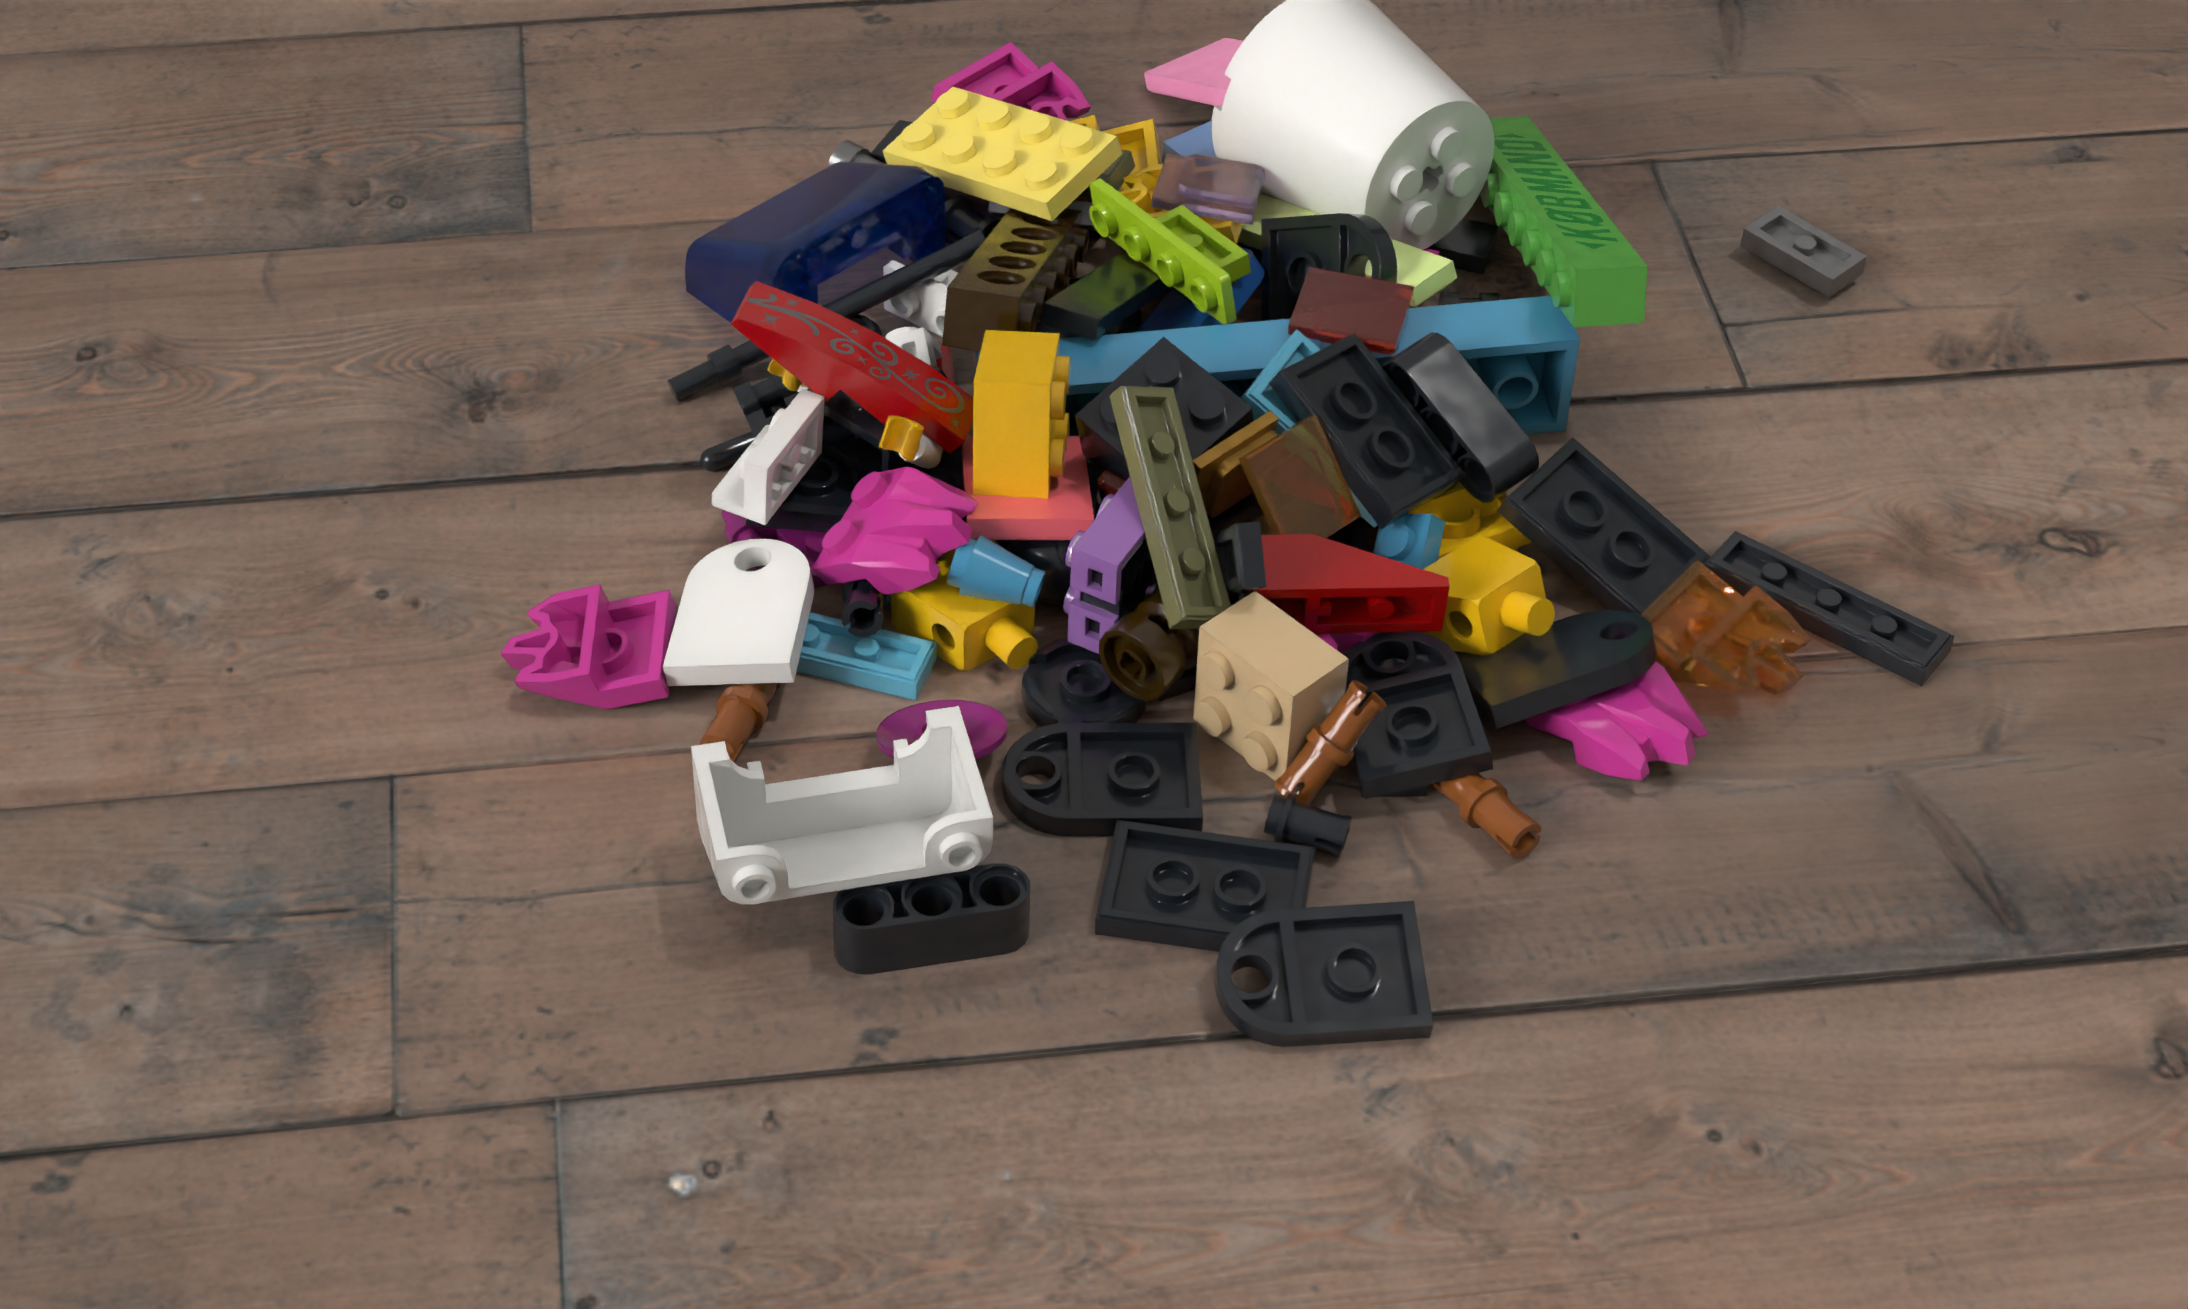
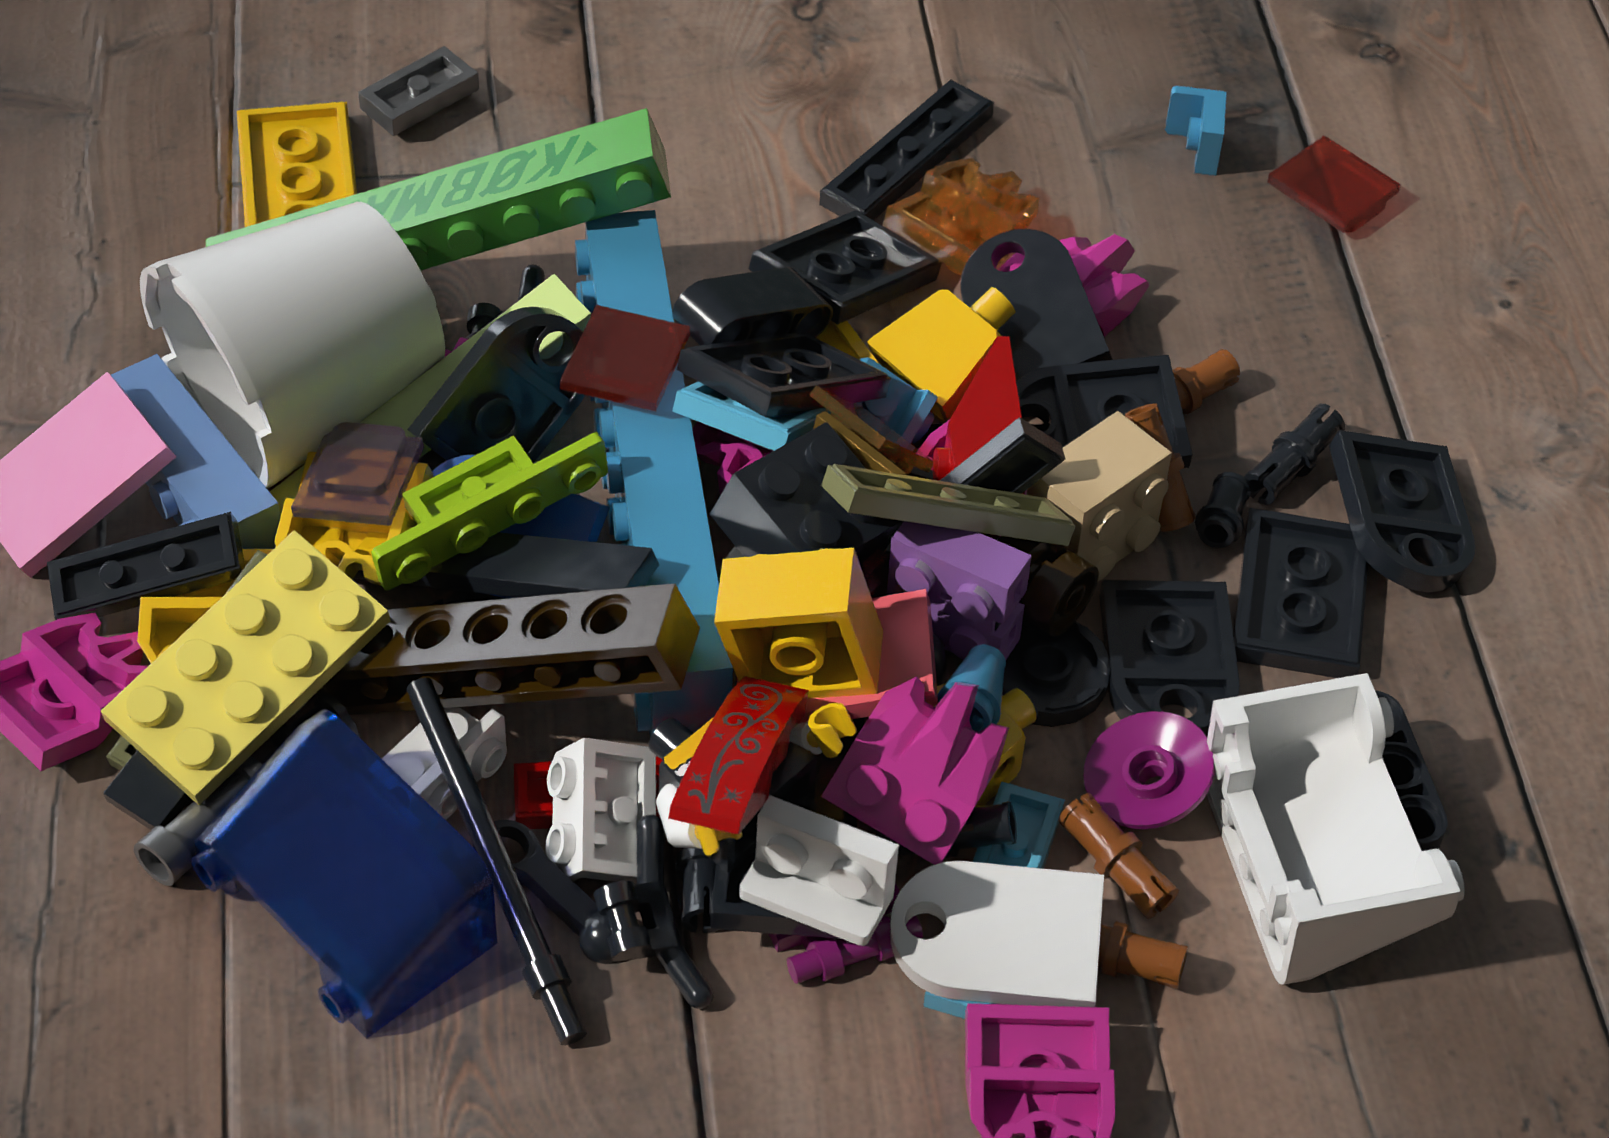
camera: 90 degrees left, 5 degrees up
(848, 717) = (1118, 855): none -> dark orange pin
(1128, 112) = (147, 566): none -> black tile
(1399, 883) = (1294, 453): none -> black pin
(1675, 189) = (294, 158): none -> yellow tile
(1872, 972) = (1335, 184): none -> clear red piece
(1928, 846) = (1201, 118): none -> dark azure bracket

